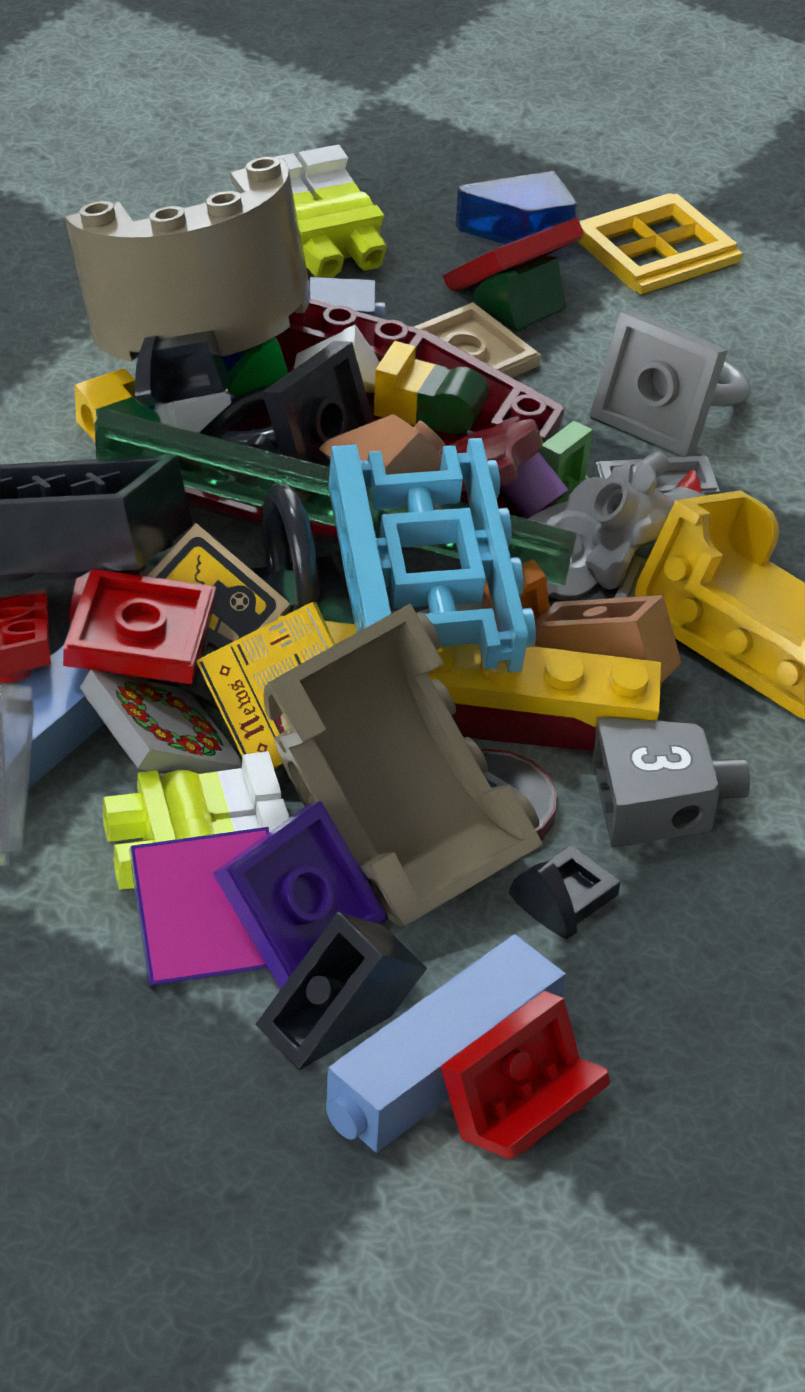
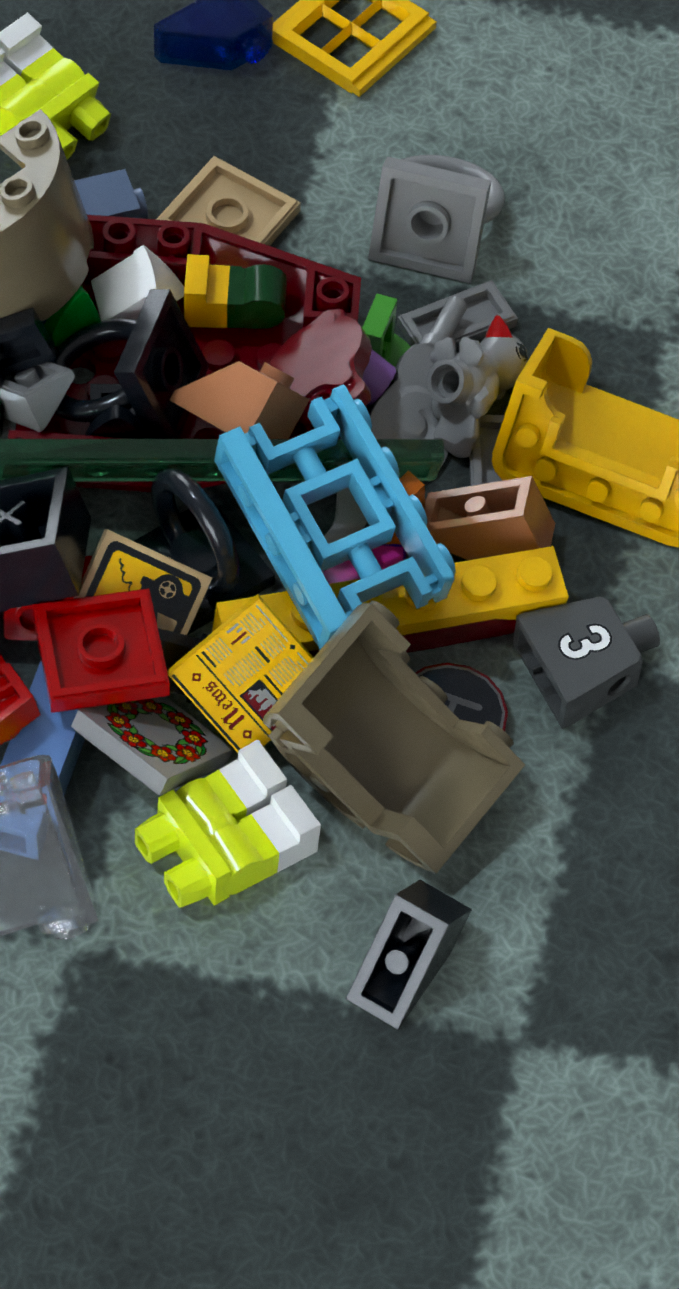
camera: 20 degrees left, 15 degrees up
(183, 912) = (271, 908): dark pink tile -> none
(294, 886) = (344, 874): dark purple tile -> none
(397, 1072) = (510, 973): medium blue brick -> none
(514, 255) = (237, 96): red tile -> none
(521, 1079) = (588, 990): red bracket -> none
(523, 293) = (258, 135): dark green tile -> none
(564, 890) = (543, 788): black tile -> none

